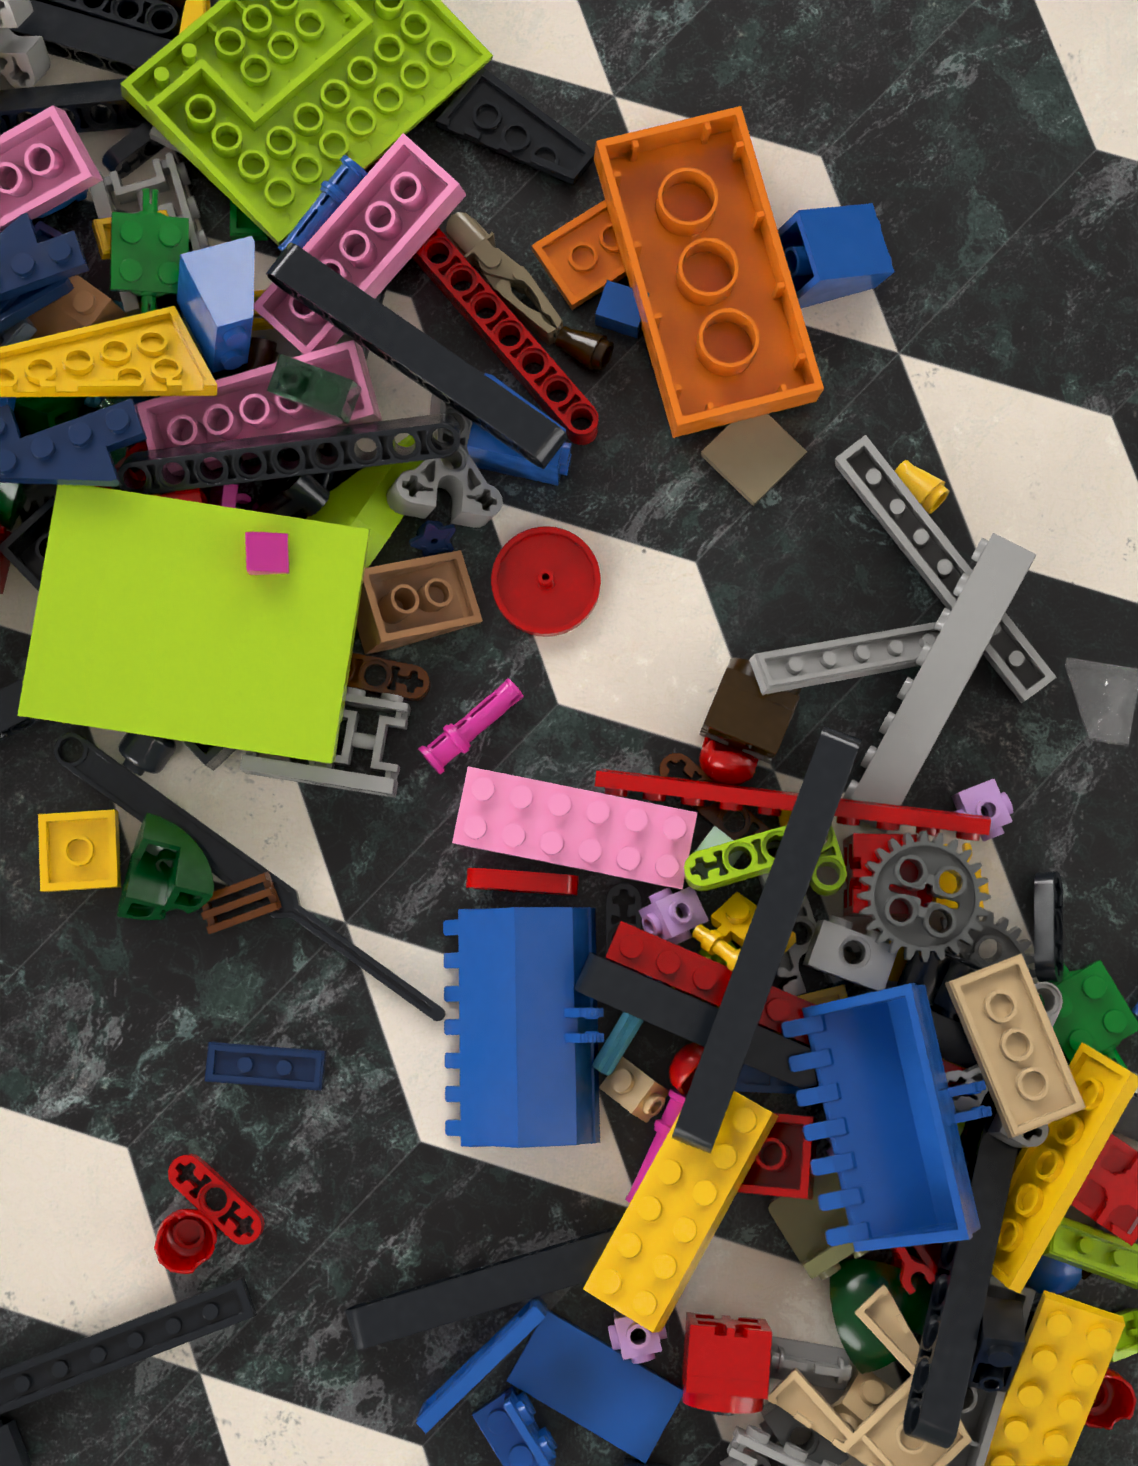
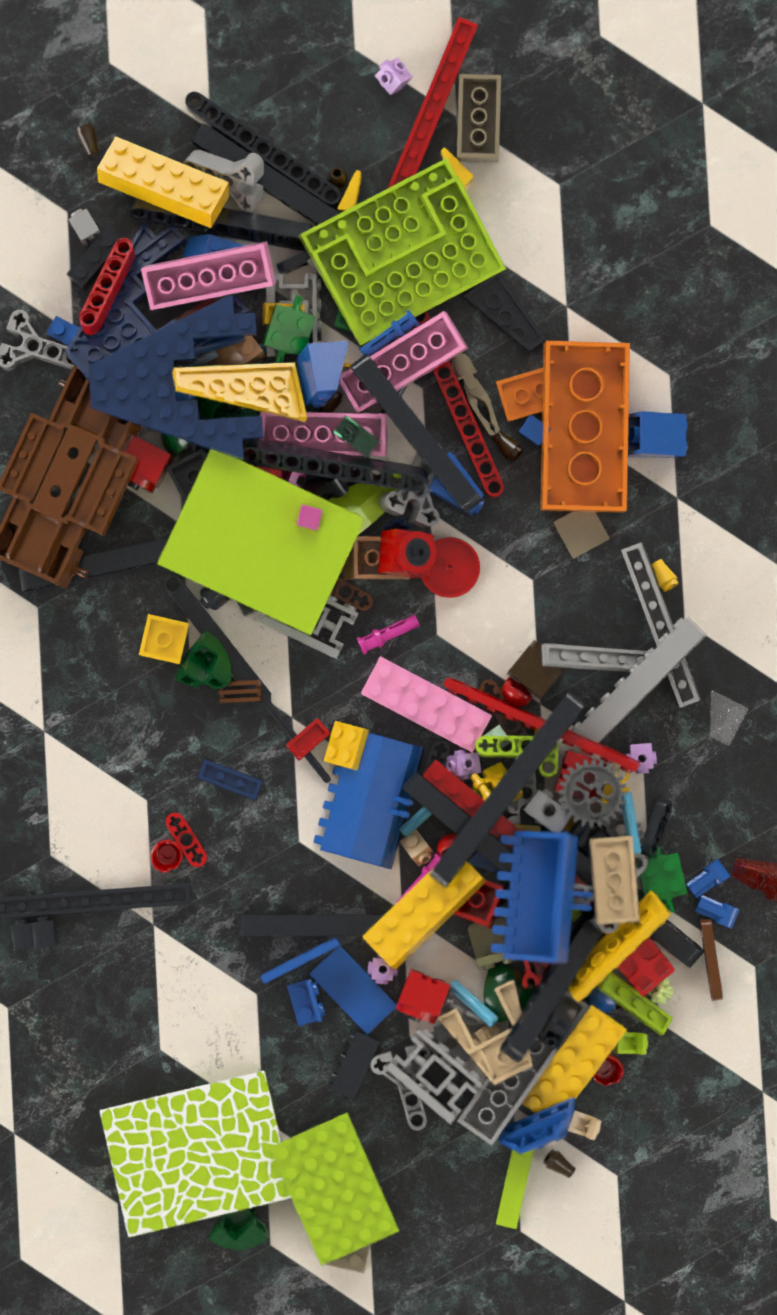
camera: 15 degrees right, 5 degrees up
(383, 953) = (308, 739): none -> red tile
(454, 943) = (346, 745): none -> yellow plate
(462, 573) = (406, 553): none -> red piece
(522, 881) = (390, 723): red beam -> none
(822, 1348) = (473, 1003): none -> medium azure axle
(1003, 928) = (630, 821): none -> medium azure axle

